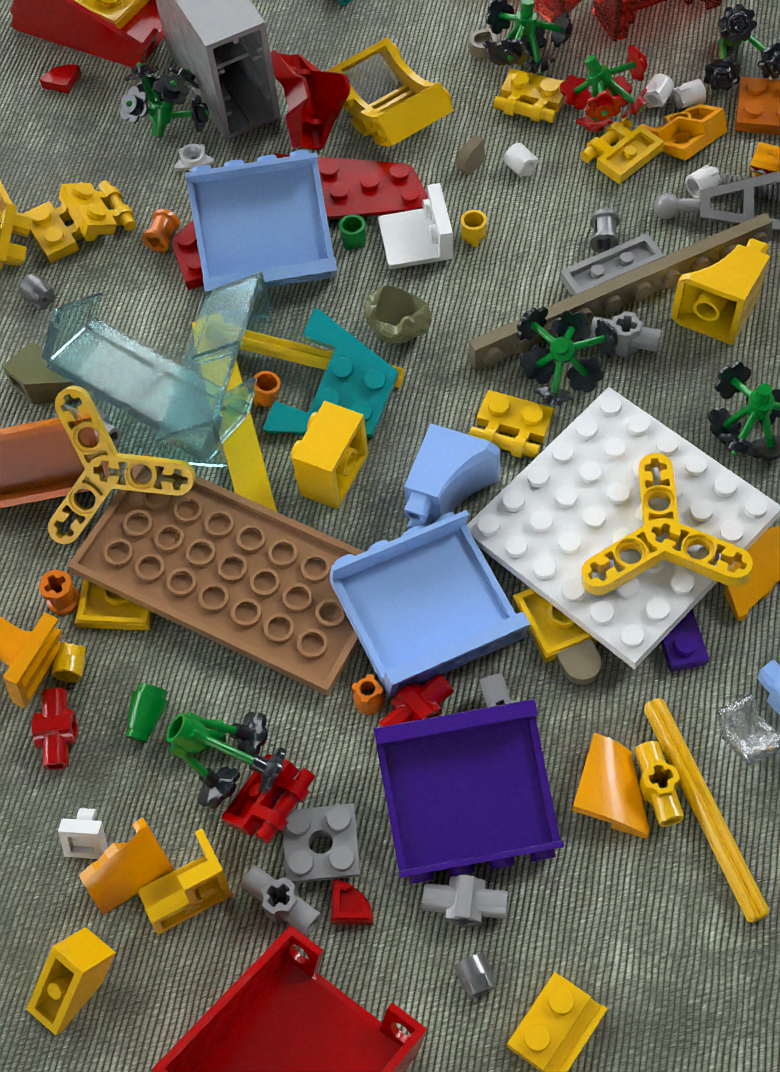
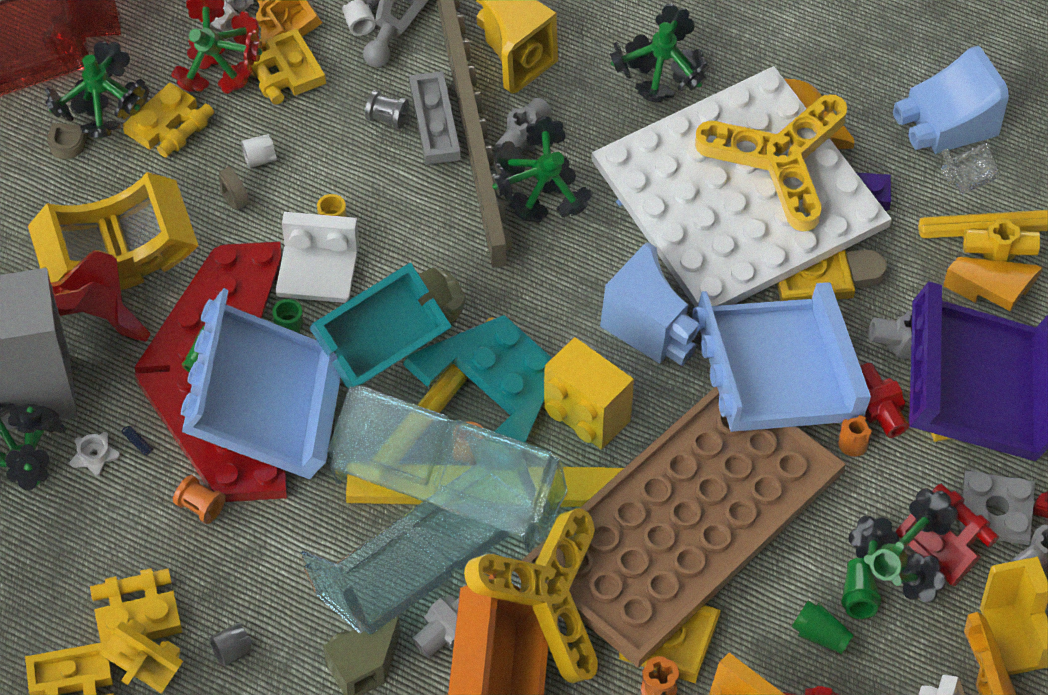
camera: 80 degrees left, 5 degrees down
(91, 210) = (136, 556): yellow plate -> none
(331, 274) = (380, 326): none -> teal piece
(515, 417) = (581, 243): yellow plate -> none

